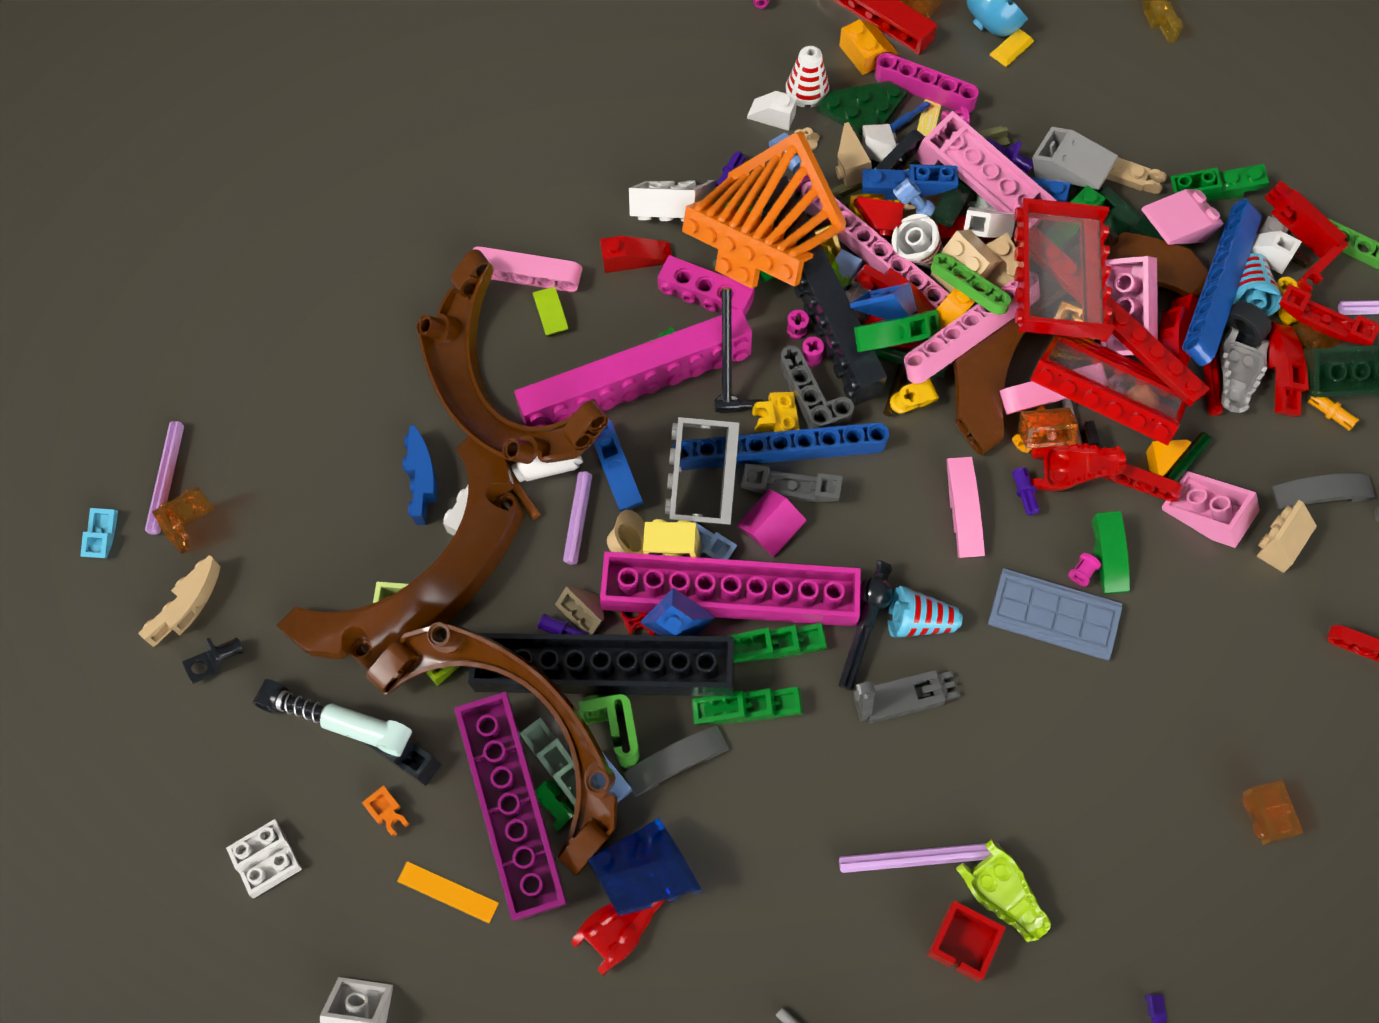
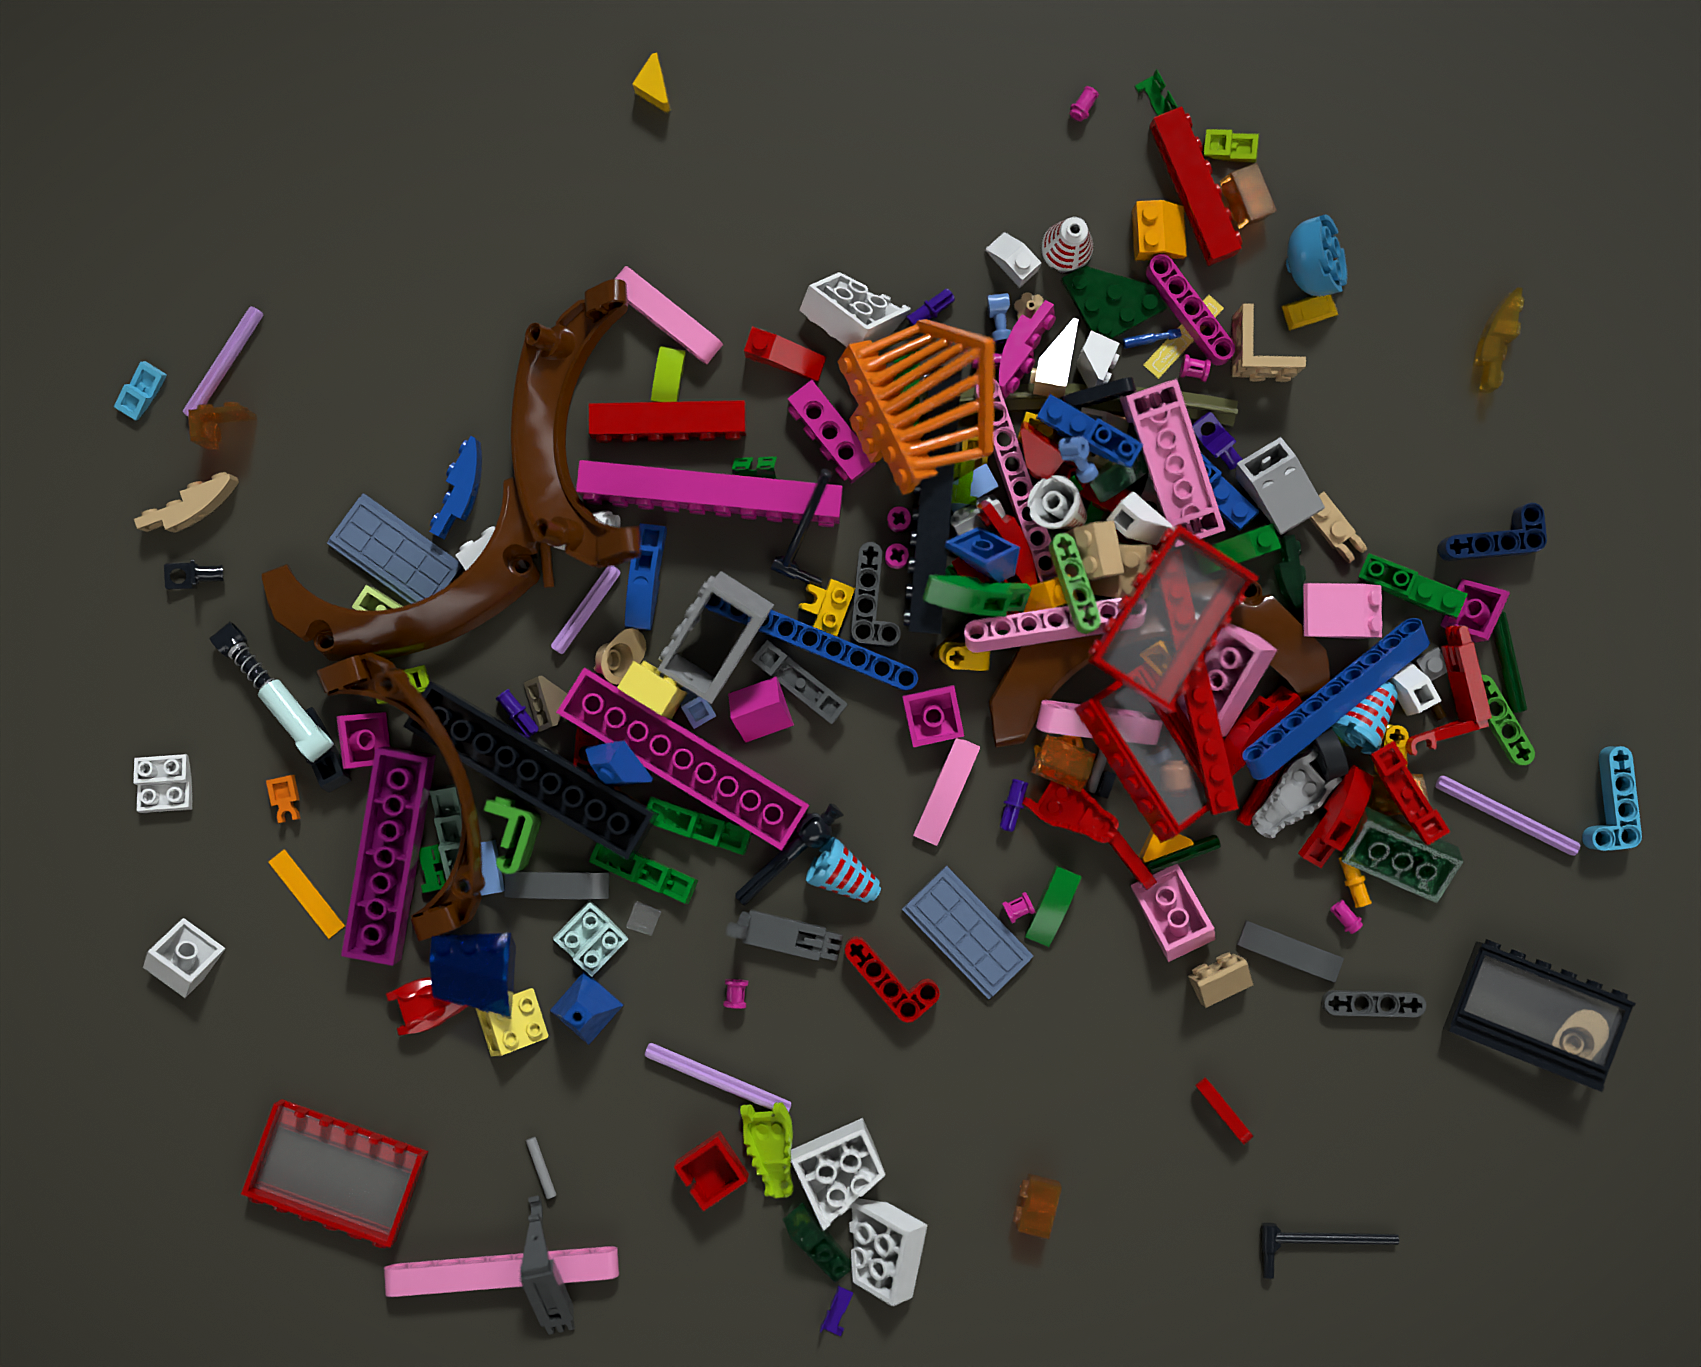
camera: 25 degrees right, 20 degrees up
(381, 552) = (393, 551): none -> sand blue piece
(428, 122) = (650, 84): none -> yellow slope
(436, 720) = (360, 738): none -> dark pink slope
(568, 341) = (667, 419): none -> red brick
(702, 913) = (523, 1028): none -> light yellow bracket
(732, 791) = (590, 938): none -> light aqua slope
(759, 867) = (586, 1007): none -> blue slope
(770, 748) = (643, 918): none -> clear slope
(819, 147) = (1019, 347): none -> dark pink slope
(890, 769) = (735, 993): none -> dark pink bush
(916, 451) = (933, 716): none -> dark pink slope
(998, 91) = (1258, 367): none -> tan bracket
(1011, 682) = (887, 976): none -> red beam
(1079, 877) = (837, 1169): none -> white wedge
(1102, 959) = (817, 1244): none -> clear green slope
(1166, 930) = (885, 1249): none -> white wedge
(1270, 115) = (1492, 540): none -> dark blue beam
(1280, 167) = (1479, 610): none -> dark pink slope
(1326, 201) = (1509, 665): none -> dark green axle
(1348, 441) = (1346, 917): none -> dark pink pin

